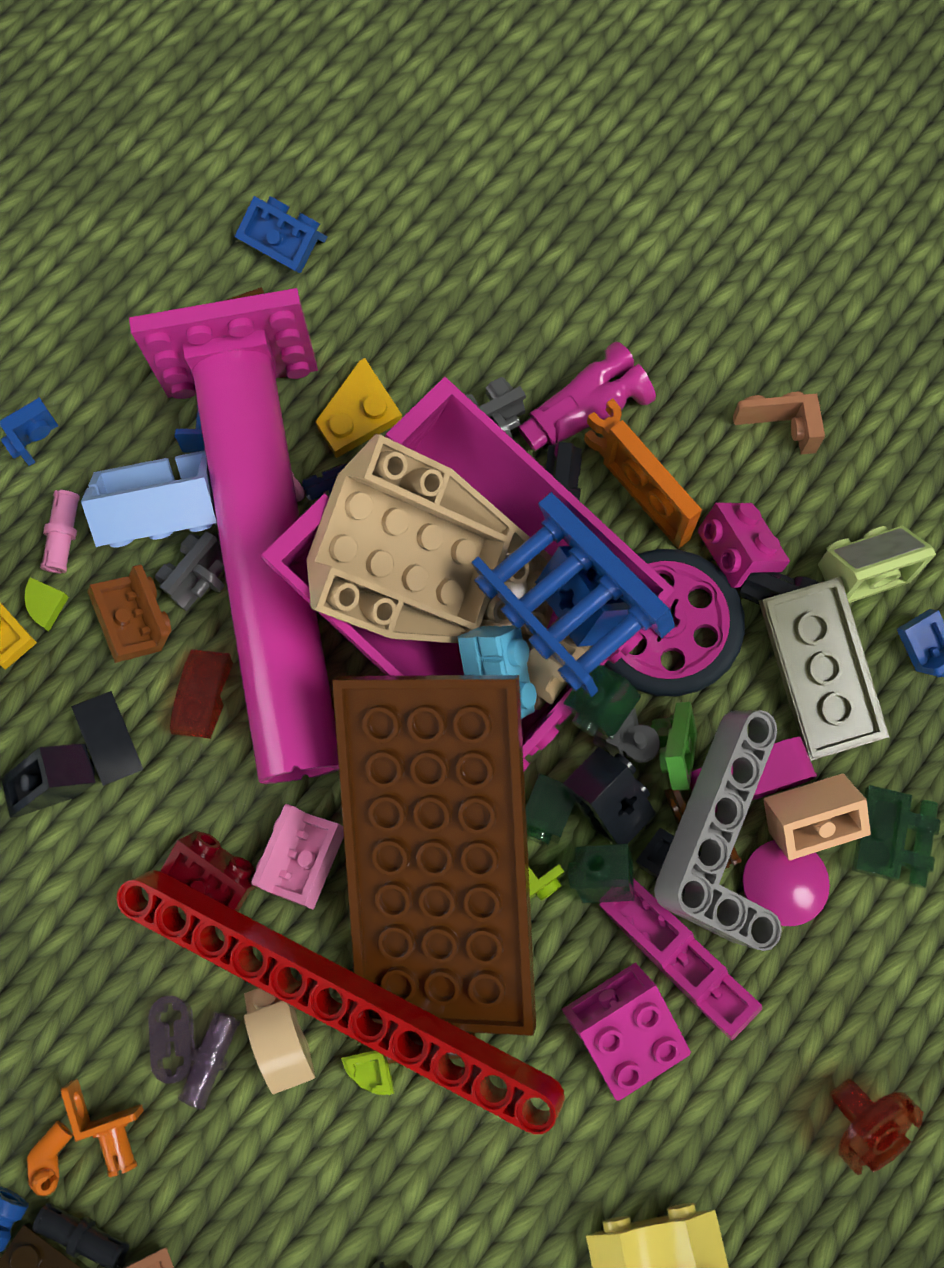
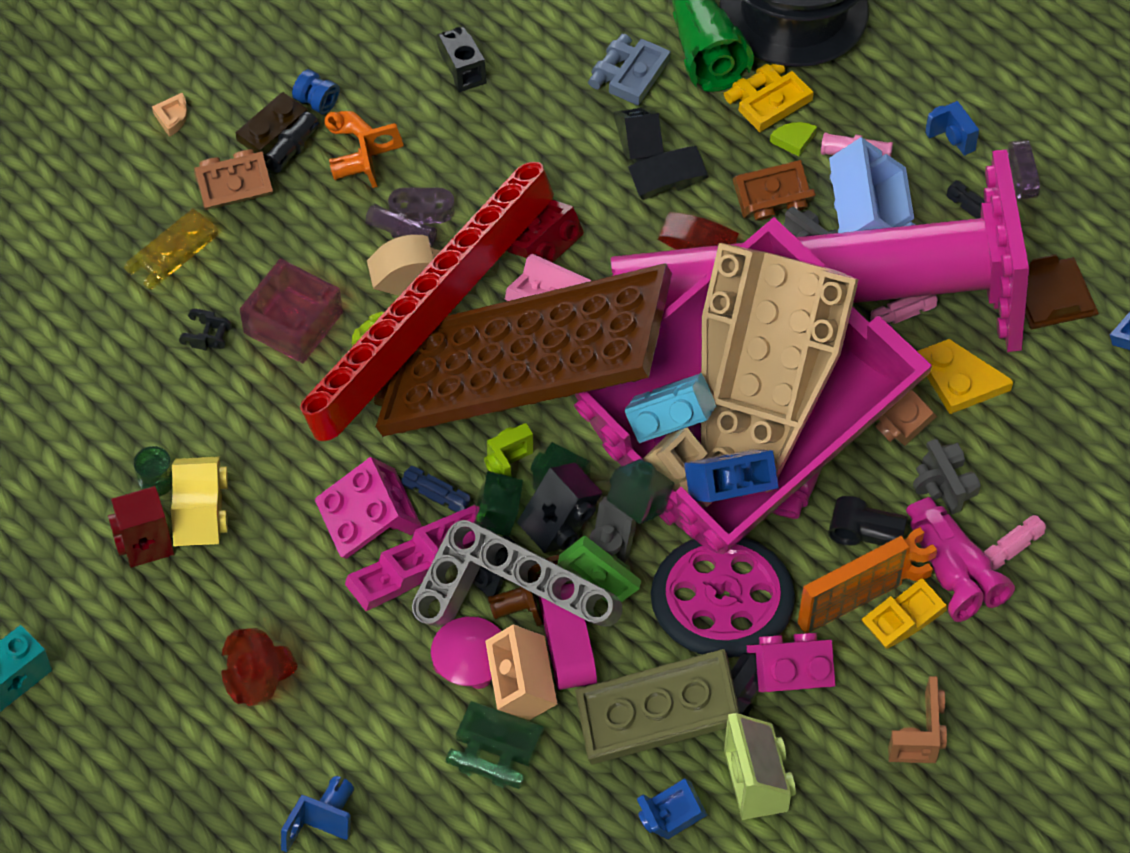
camera: 95 degrees right, 15 degrees down
(83, 359) = (1023, 169): none -> clear purple beam
(132, 406) = (970, 200): none -> black axle
(358, 1183) = (291, 310): none -> clear pink container
(554, 349) = (1015, 541): none -> bright pink axle
(585, 953) = (435, 489): none -> dark blue axle
(587, 552) = (723, 472): blue fence -> none
(665, 446) = (905, 615): none -> yellow slope

